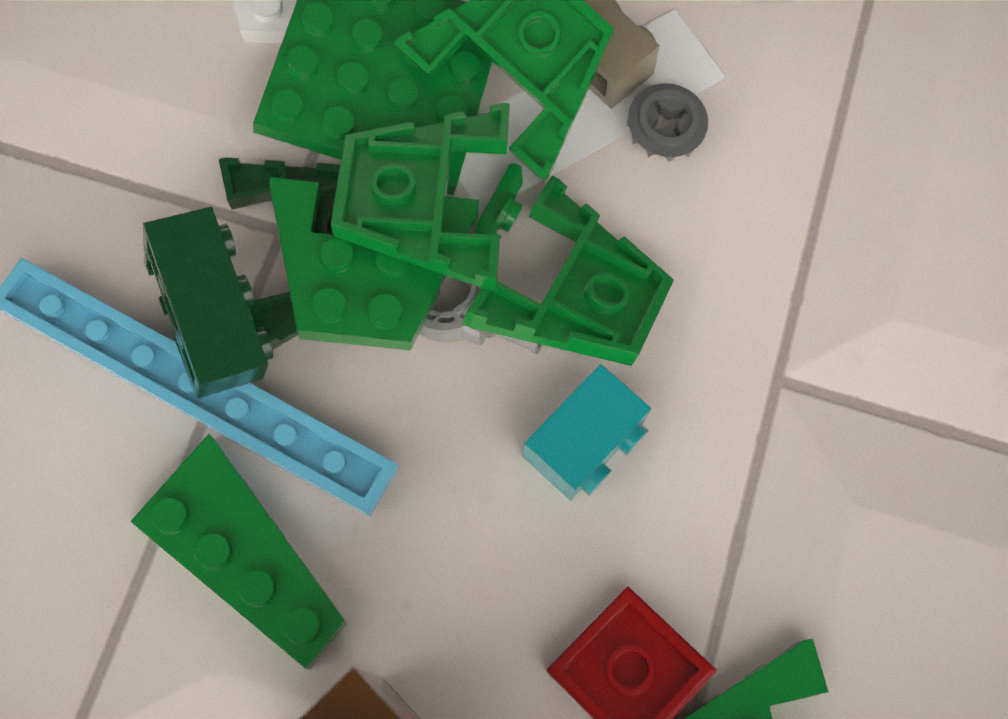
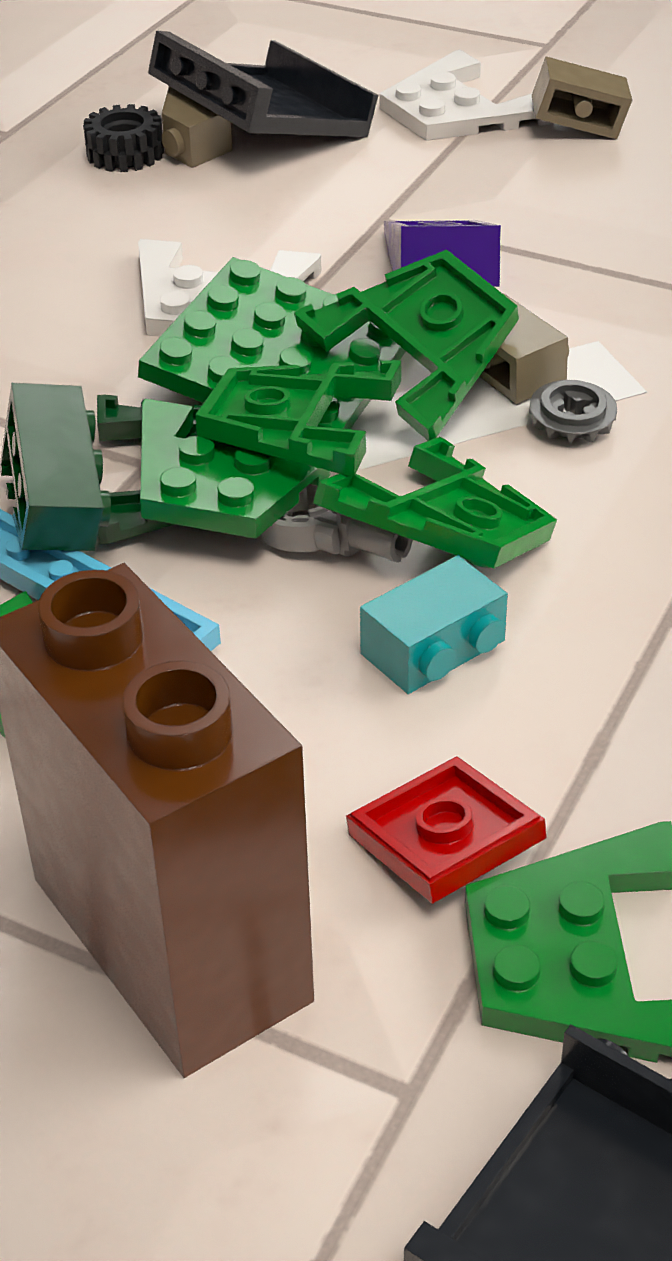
camera: 15 degrees right, 30 degrees down
(502, 207) = (384, 455): green piece -> none

